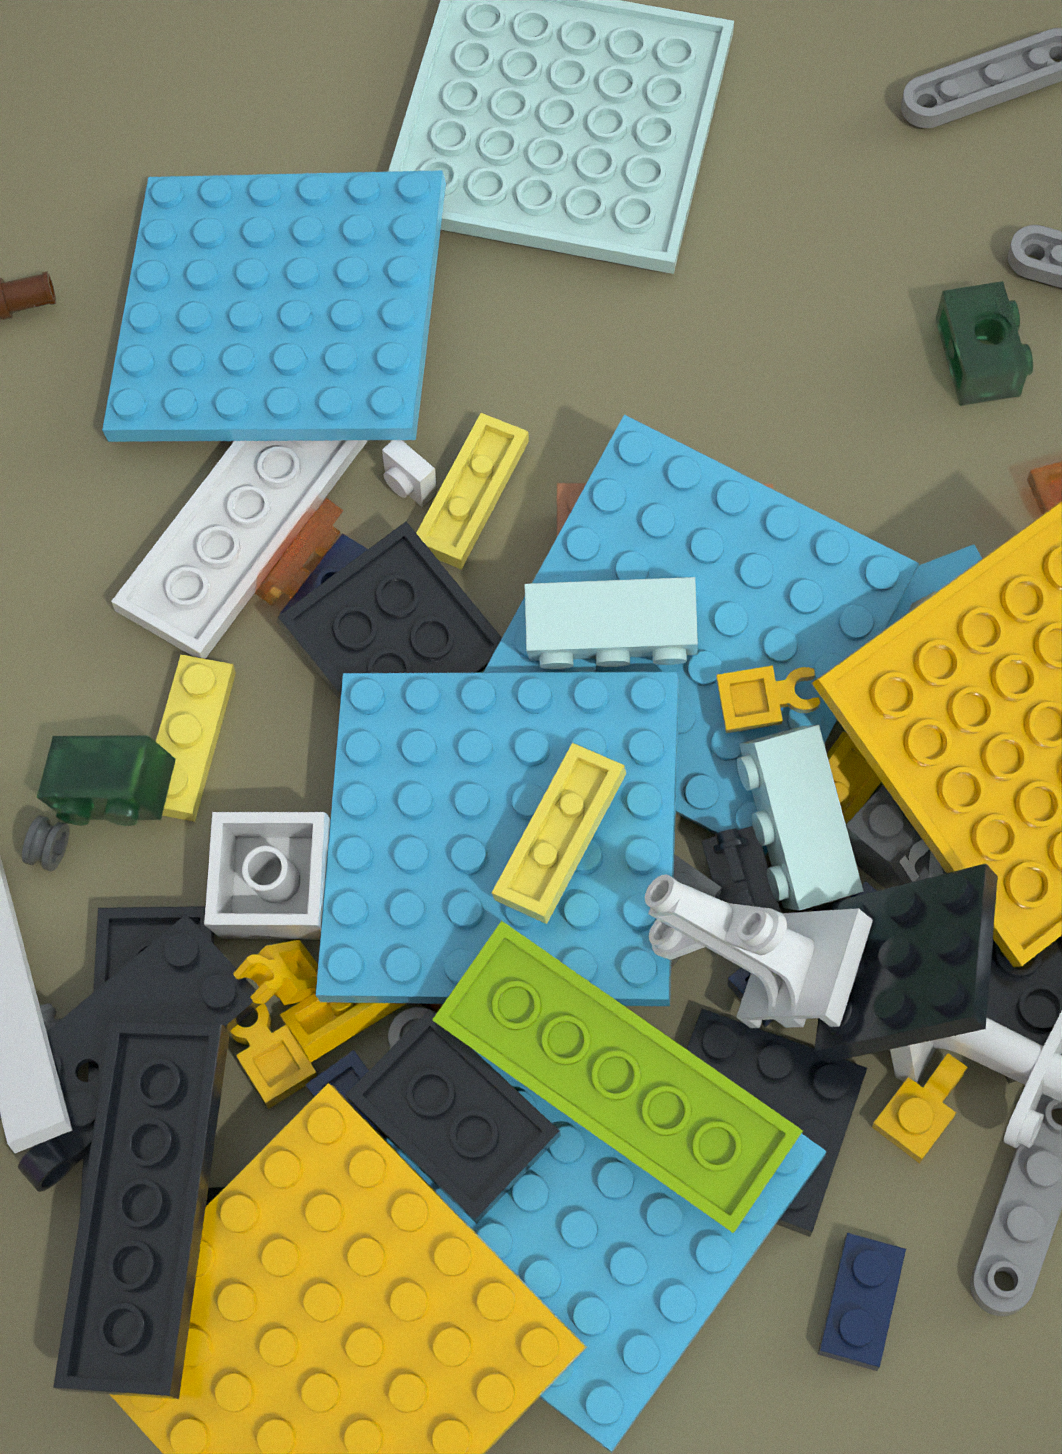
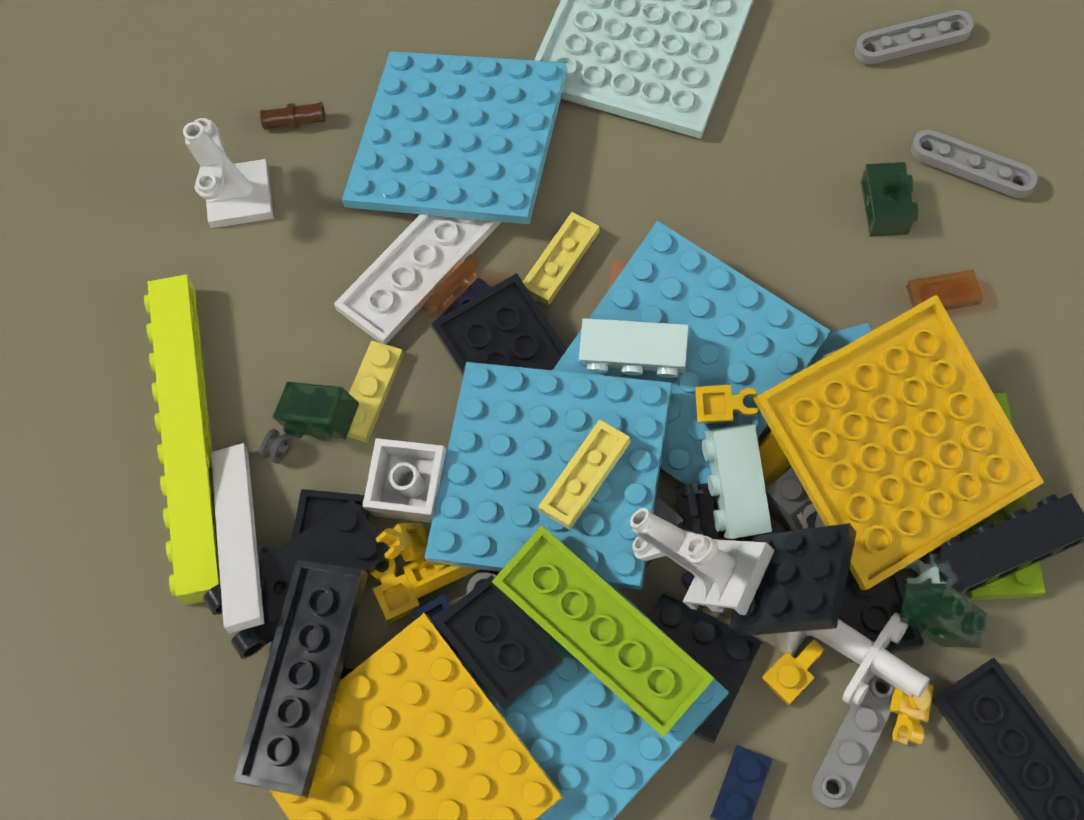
camera: 10 degrees right, 0 degrees up
(408, 473) = (523, 244): white plate -> none

